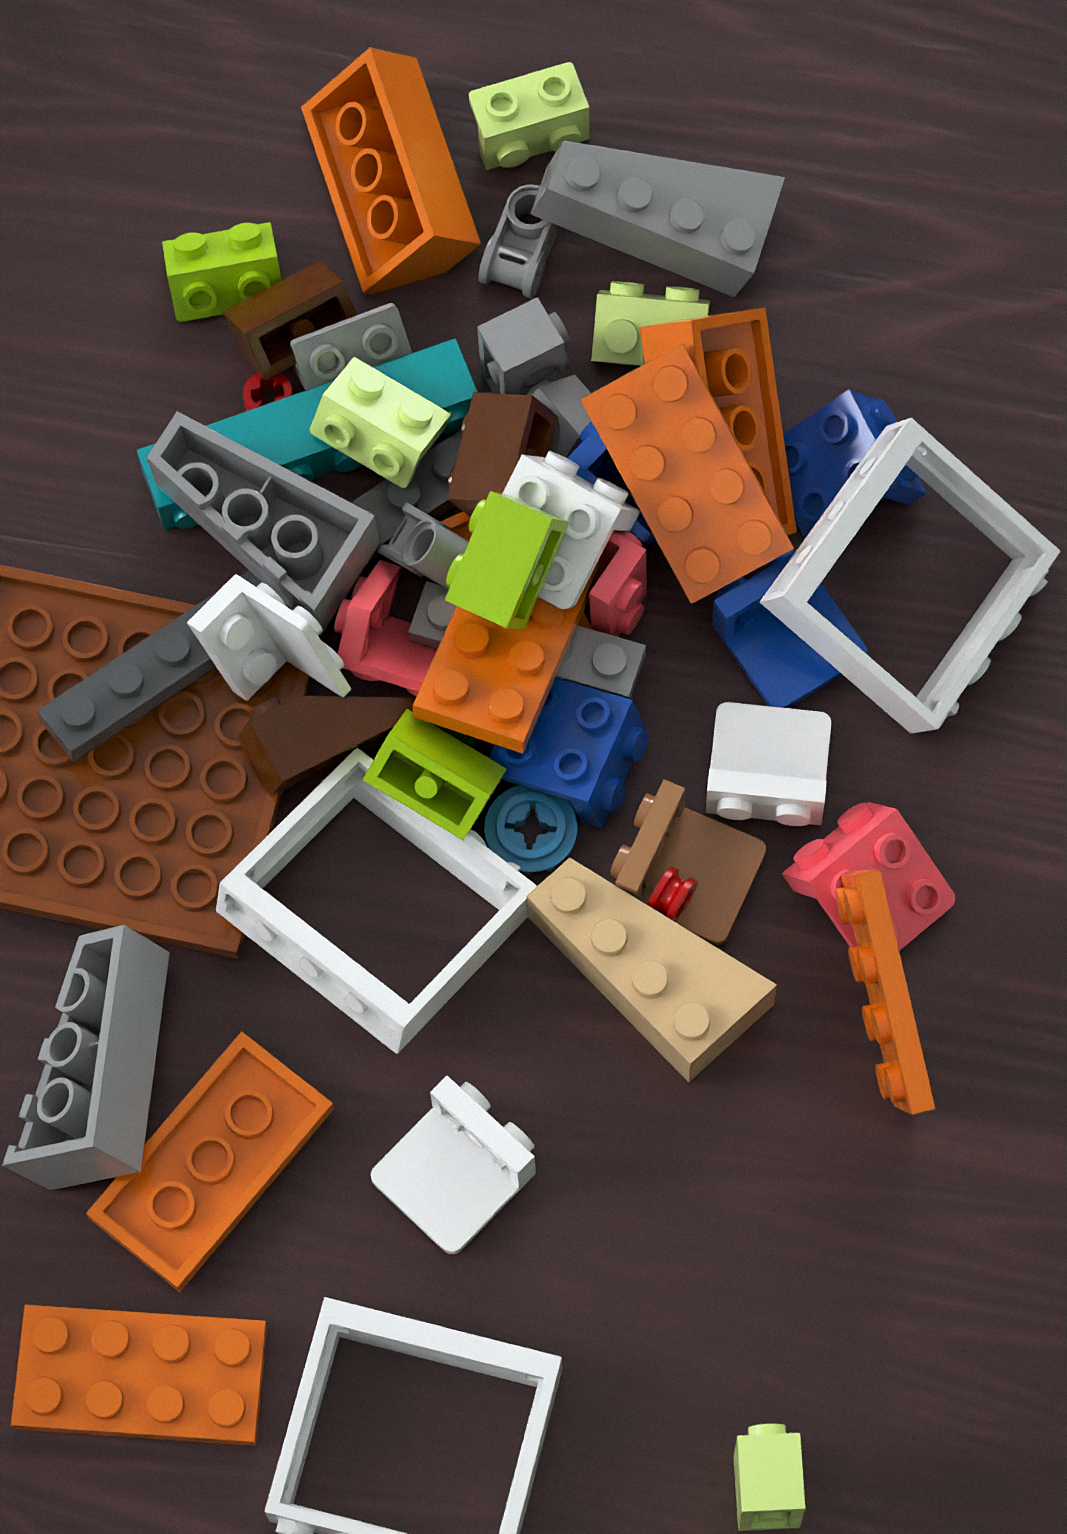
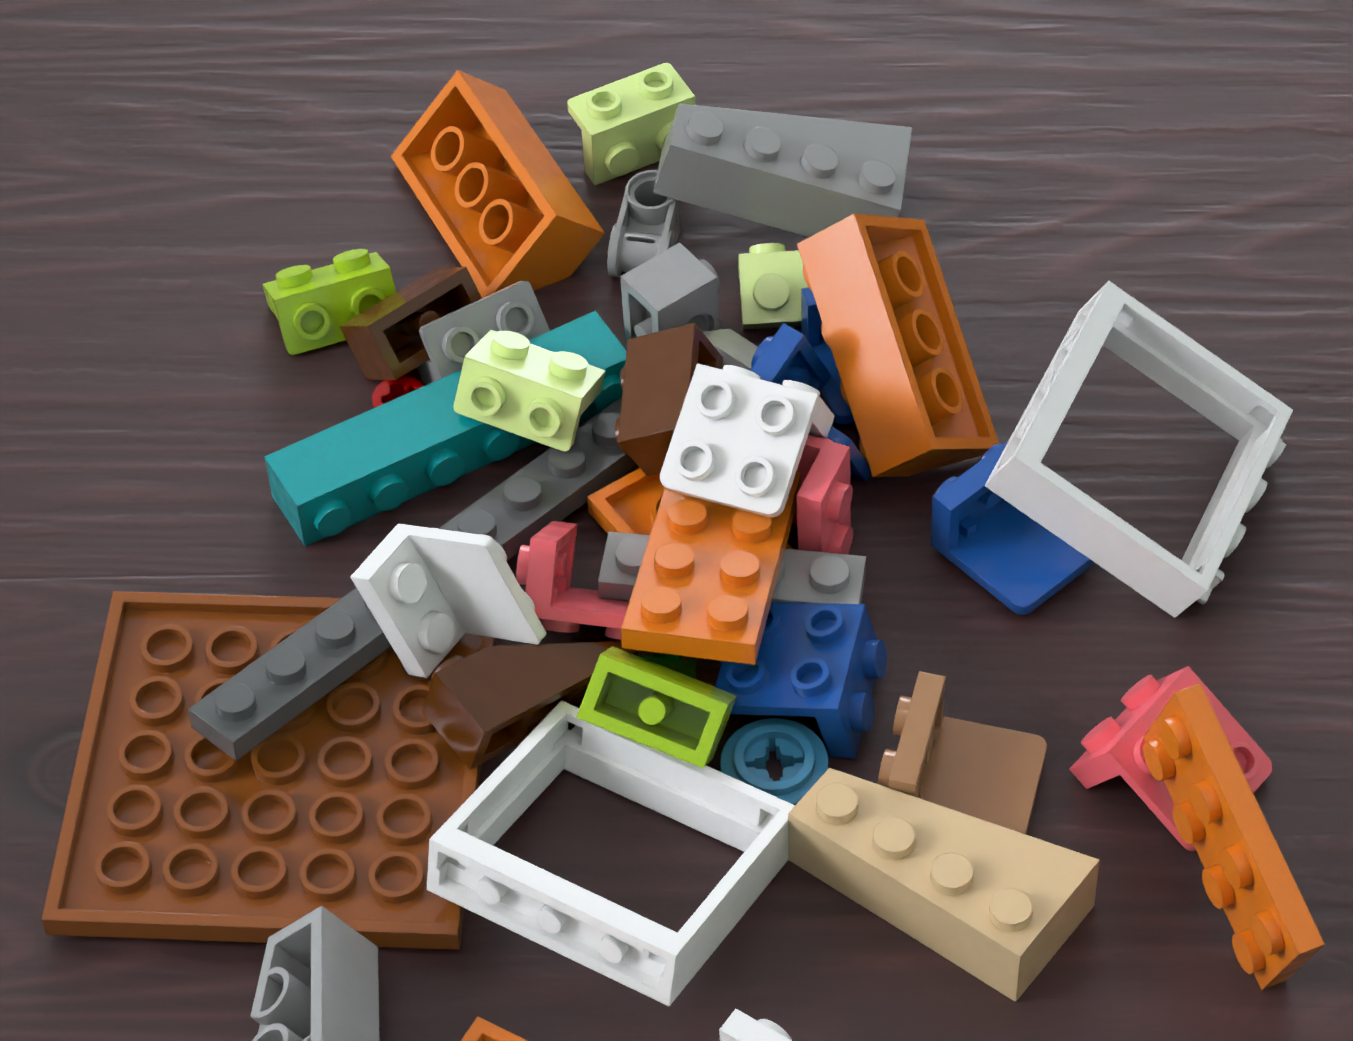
camera: 10 degrees left, 20 degrees down
(266, 516) = (415, 469): light grey wedge -> none
(424, 545) = (608, 495): light grey piece -> none
(505, 560) = (700, 460): lime brick -> none
(672, 894) = (955, 790): red bush -> none
(687, 473) = (879, 369): orange plate -> none
(769, 764) = (1029, 663): white bracket -> none
(828, 449) = (1018, 353): blue bracket -> none

